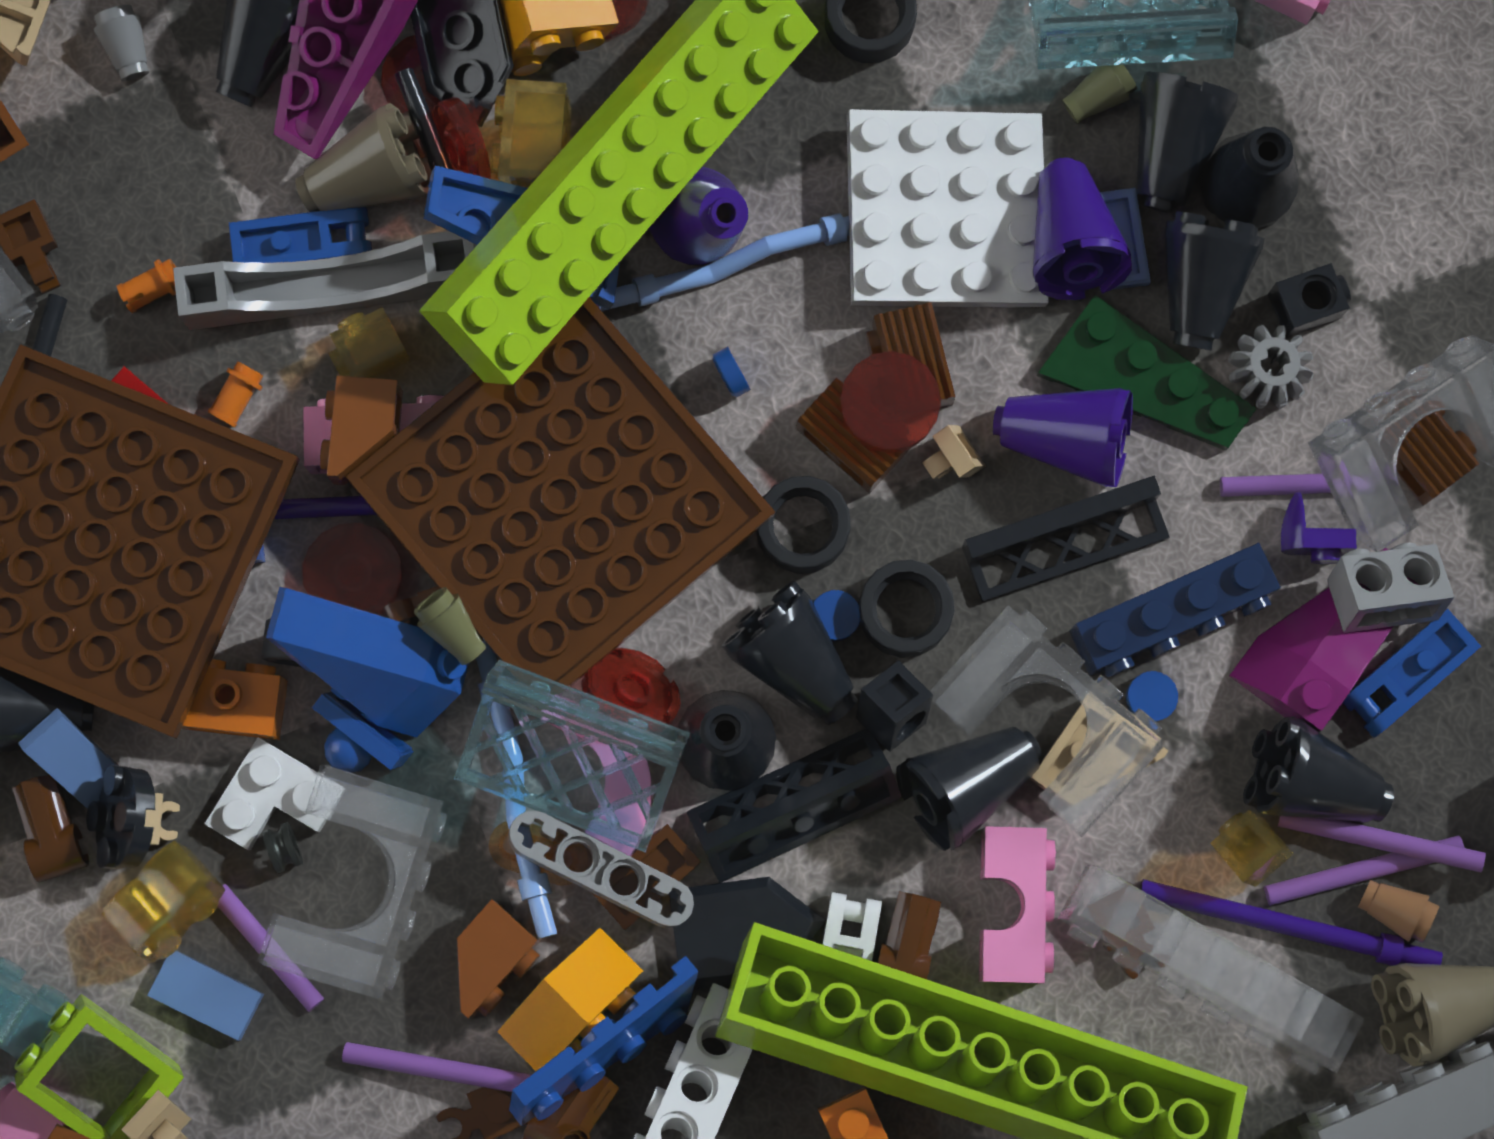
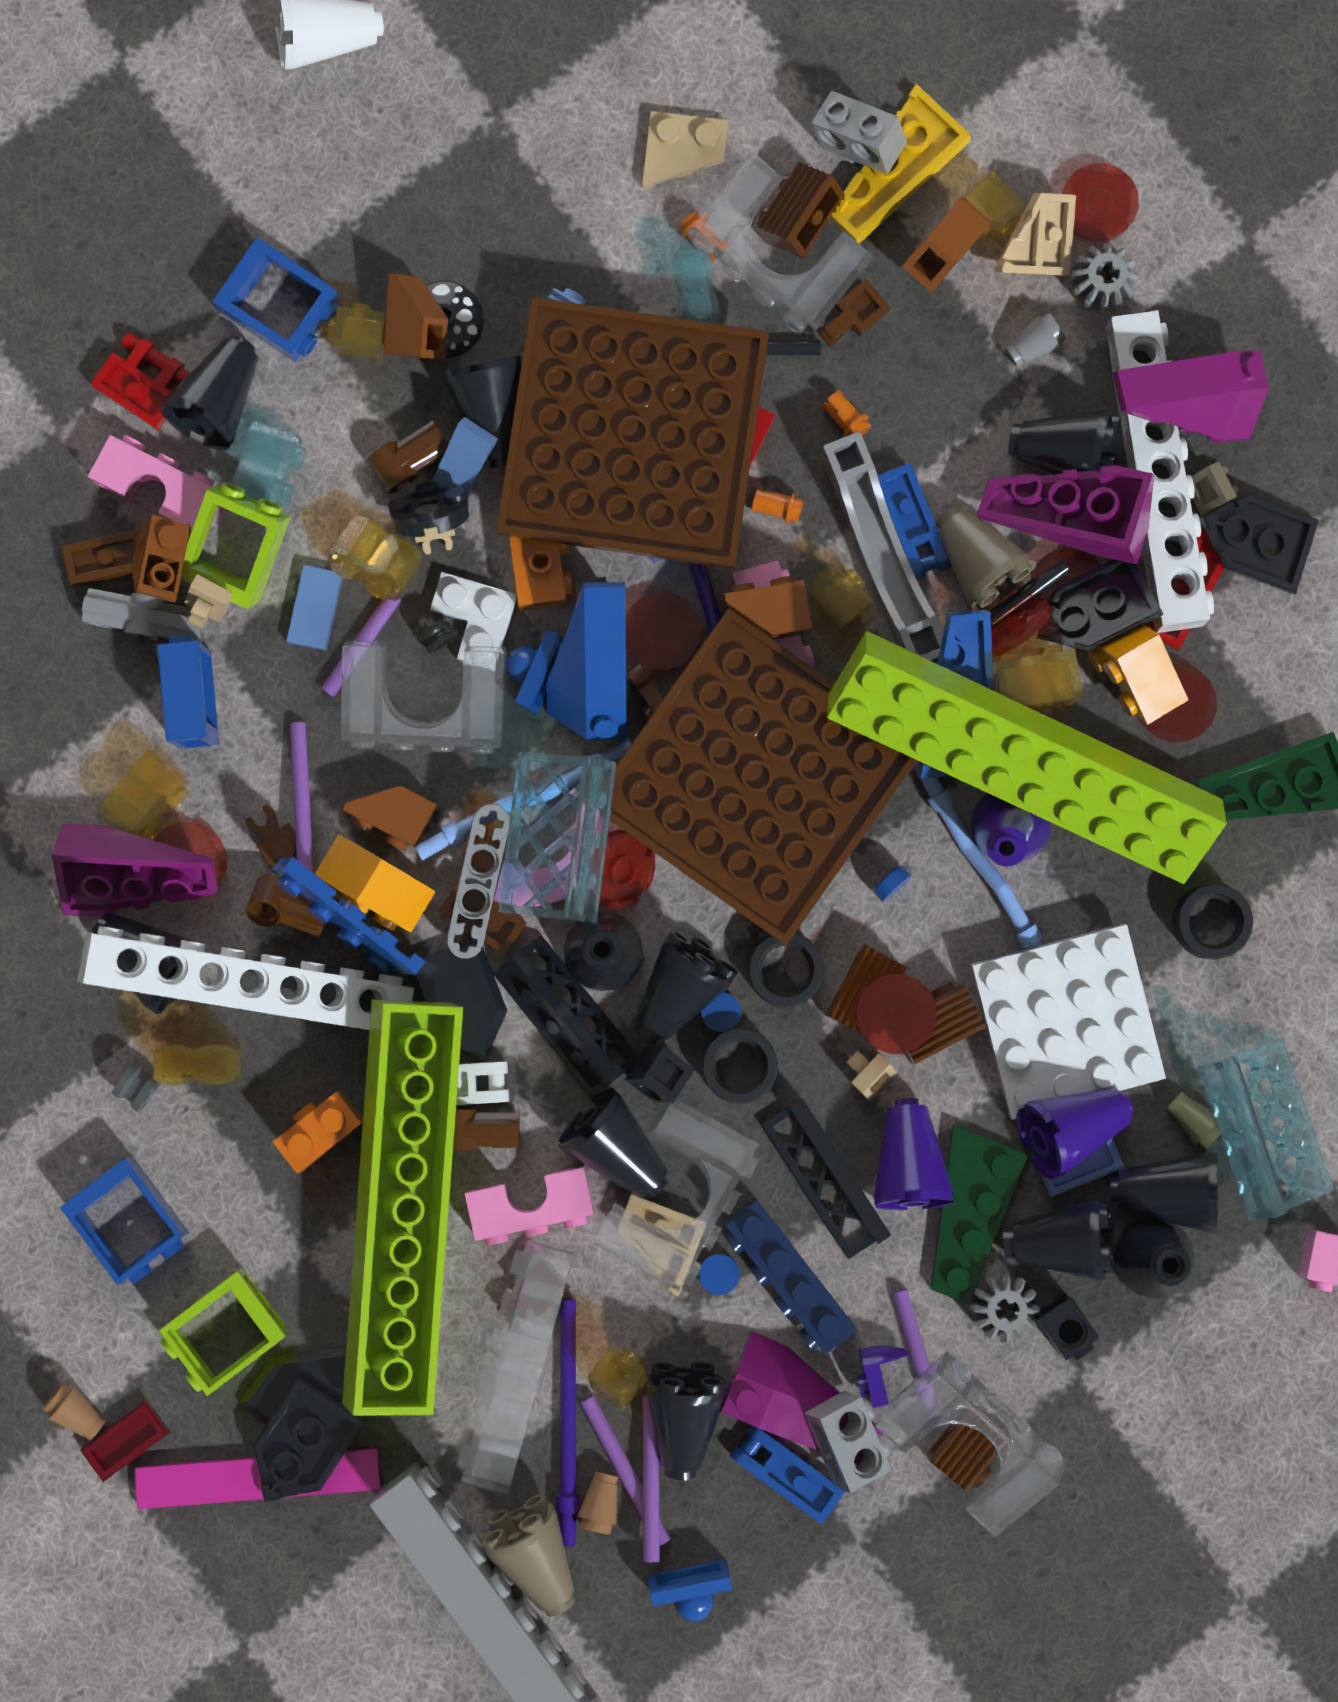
camera: 70 degrees right, 5 degrees up
(449, 624) = (633, 717): olive cone -> none

